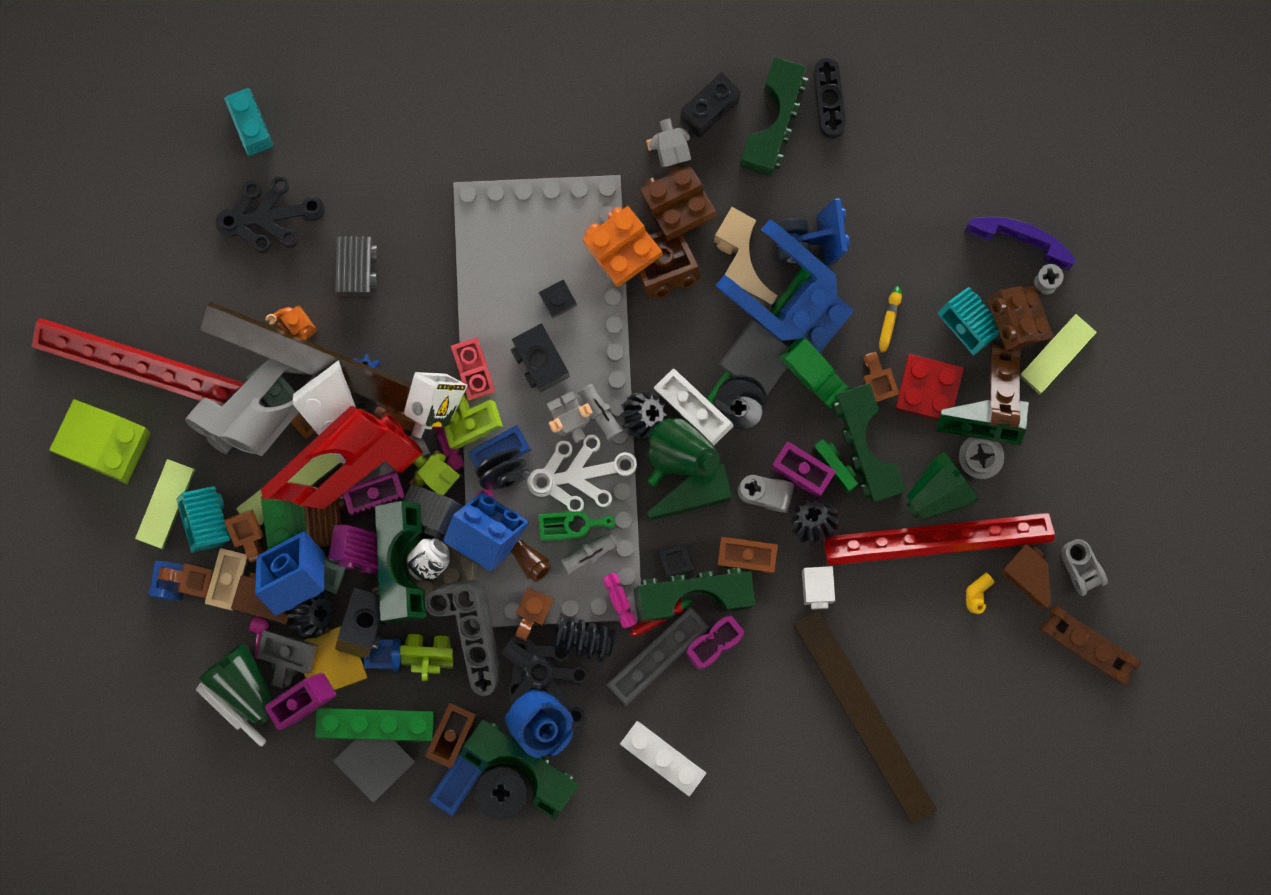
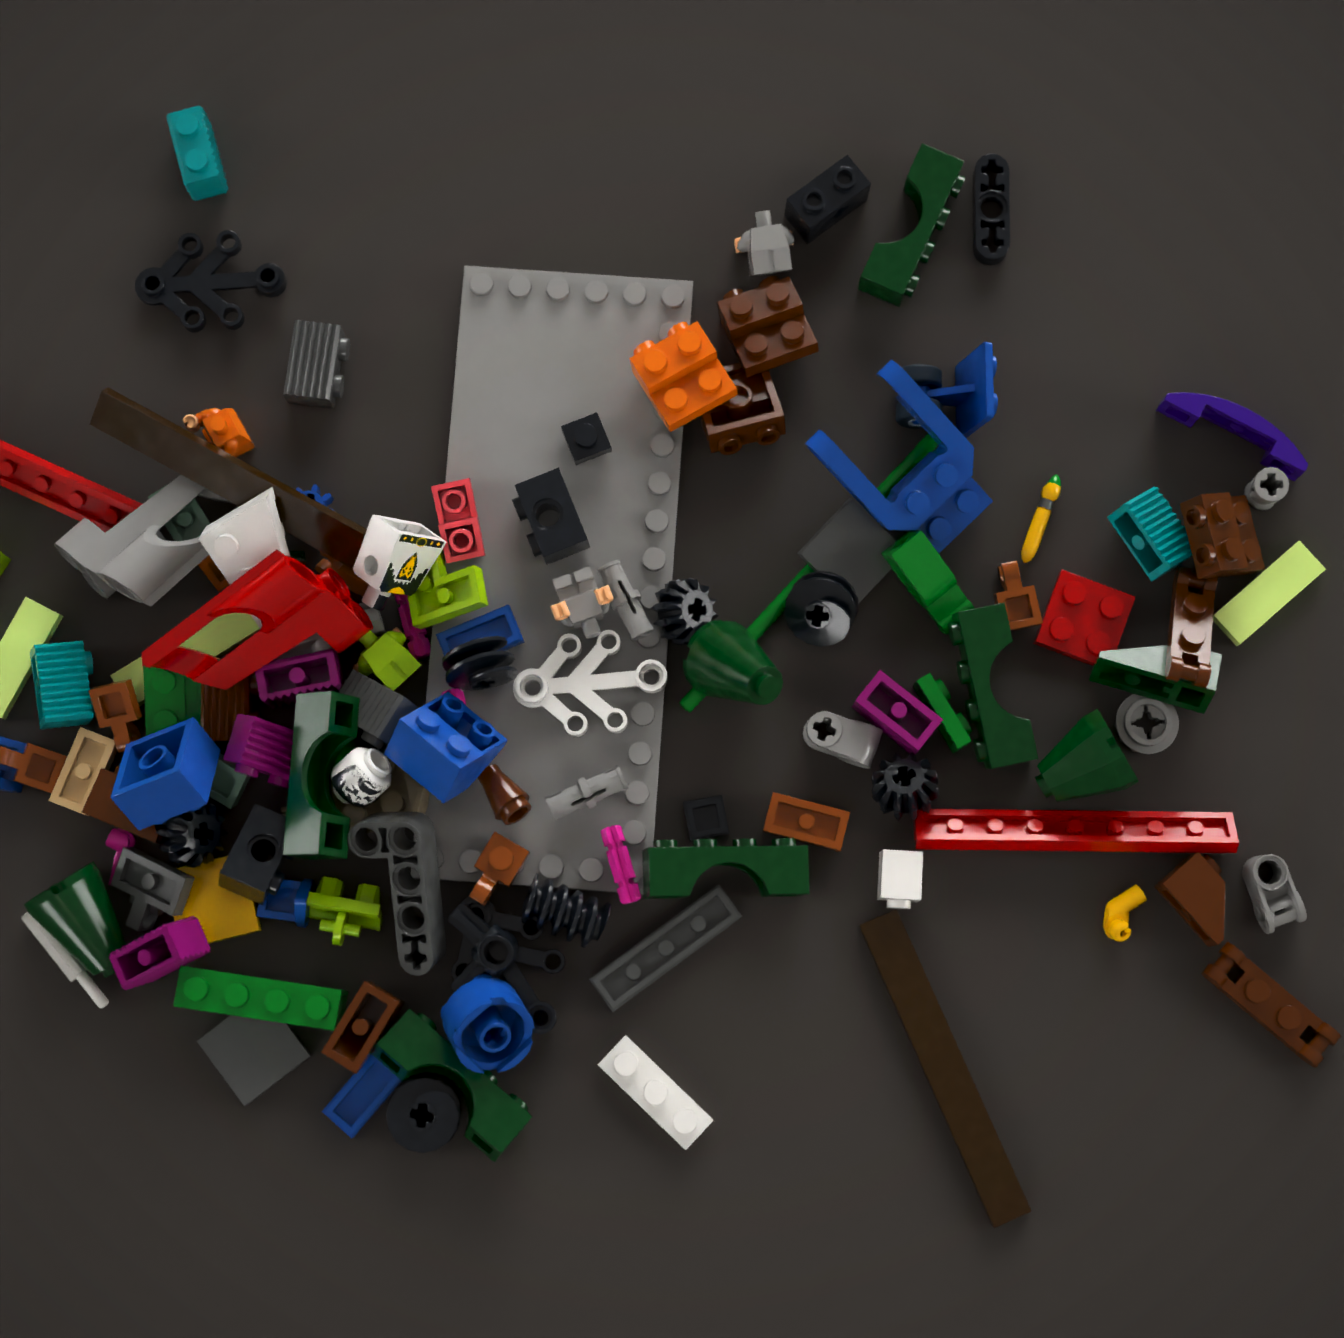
camera: 10 degrees right, 0 degrees up
(556, 526) = (555, 747): green piece -> none
(641, 628) = (648, 906): red piece -> none
(693, 407) = (755, 608): white plate -> none
(694, 494) = (742, 728): dark green slope -> none
(708, 647) = (756, 934): magenta brick -> none
(734, 237) = (839, 383): tan arch -> none

